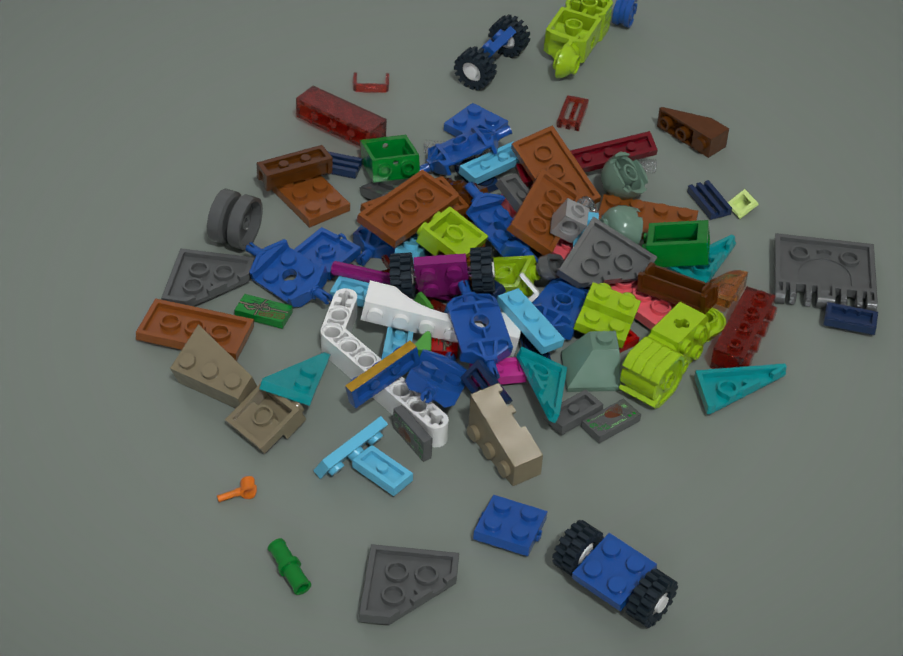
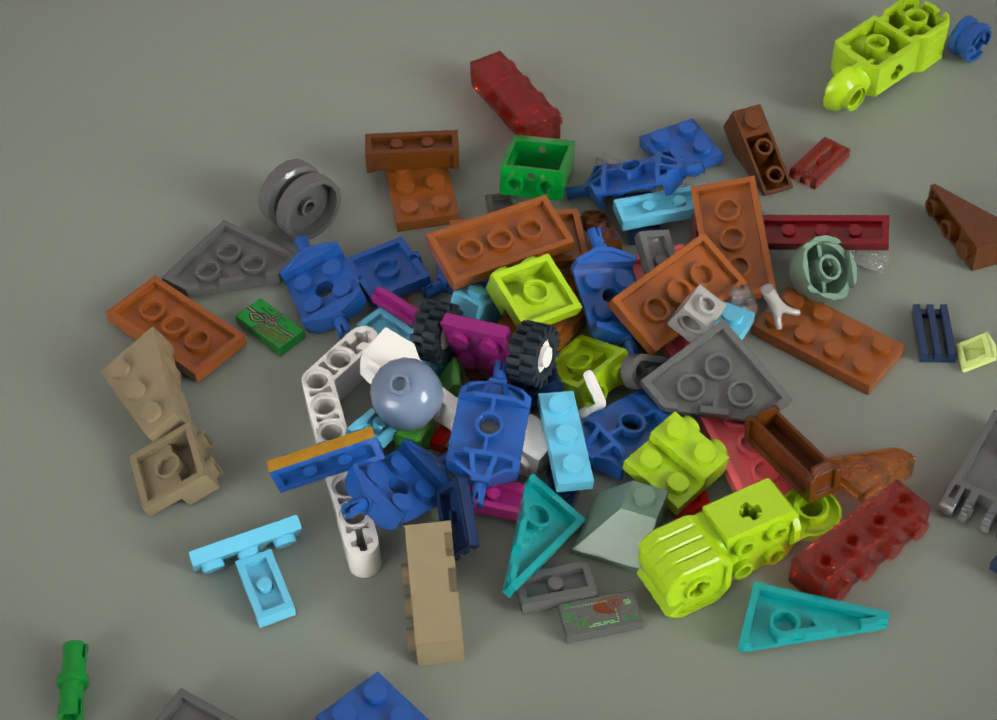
camera: 30 degrees right, 5 degrees up
(246, 490) = (96, 558): orange hand -> none
(297, 381) = (236, 435): teal wing -> none
(346, 165) = (482, 155): dark blue tile -> none
(370, 87) = (584, 68): clear red piece -> none
(412, 317) = (406, 394): none -> sand blue cylinder
(412, 433) = (332, 549): dark grey tile -> none
(476, 66) = (721, 67): black plate -> none
(526, 110) = (757, 150): none -> reddish brown slope
(608, 200) = (776, 305): none -> light grey bar
(625, 221) = (770, 338): sand green cylinder -> none
(679, 243) = (852, 409): green window -> none
(718, 253) = (855, 428): teal wing -> none

